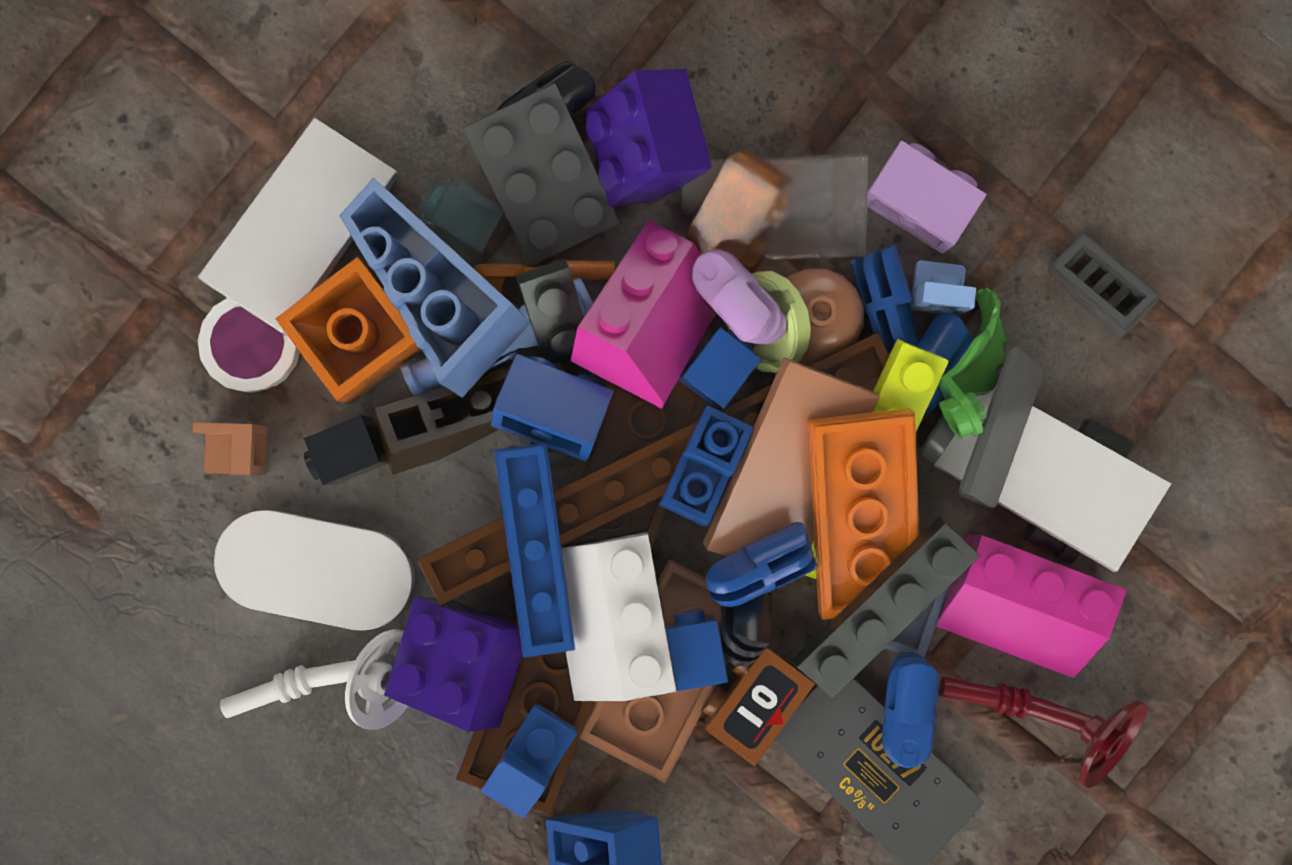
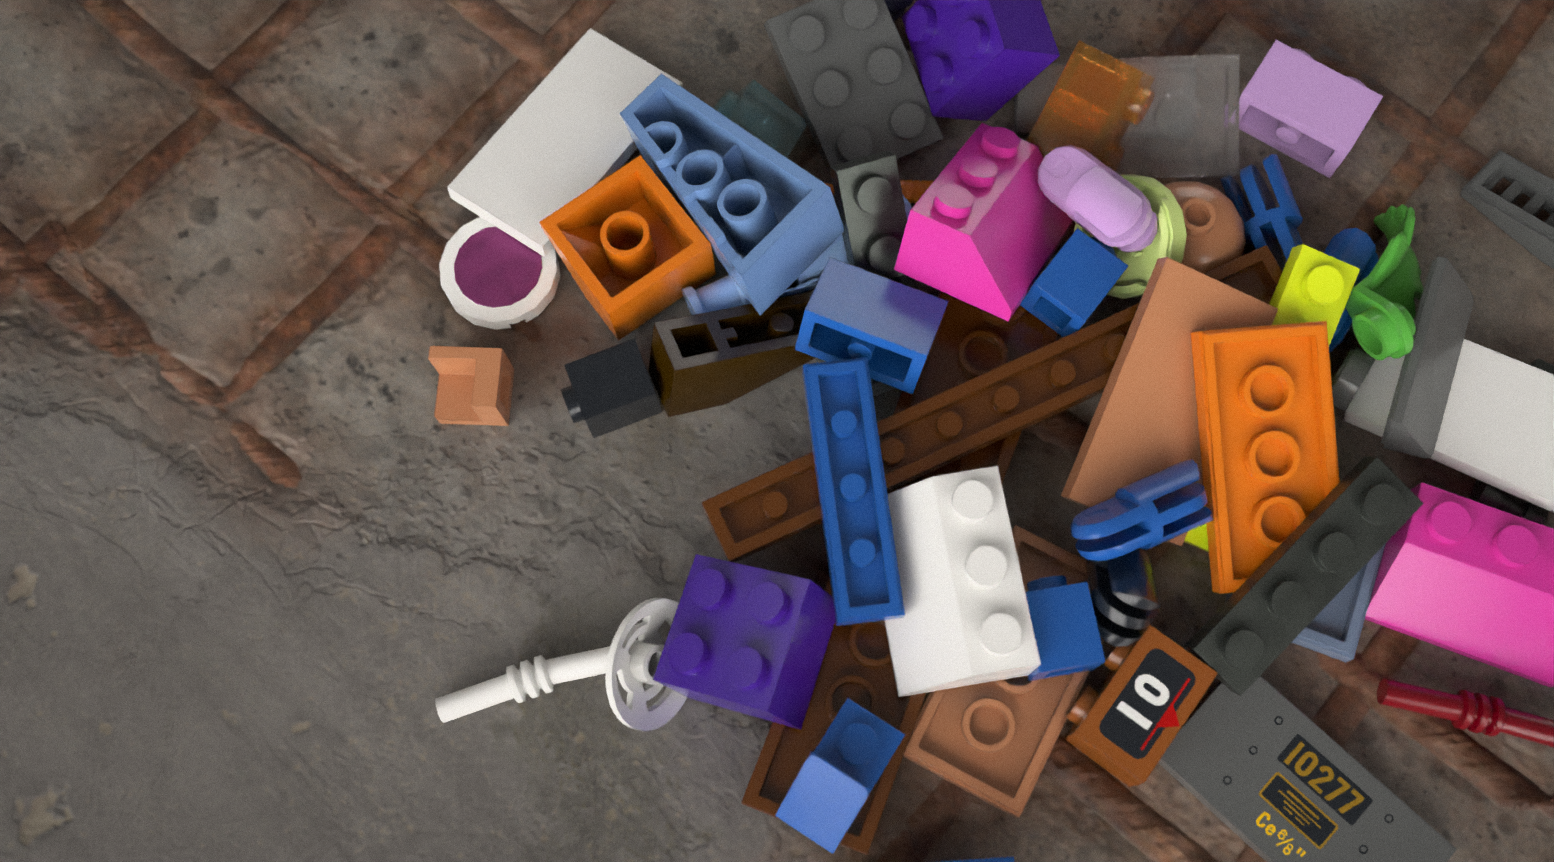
camera: 10 degrees right, 15 degrees down
(314, 569) = (564, 536): white tile -> none
(706, 466) = (1065, 392): blue slope -> none
(910, 710) = (1346, 715): blue arm -> none
(941, 288) = (1336, 206): light blue bracket -> none

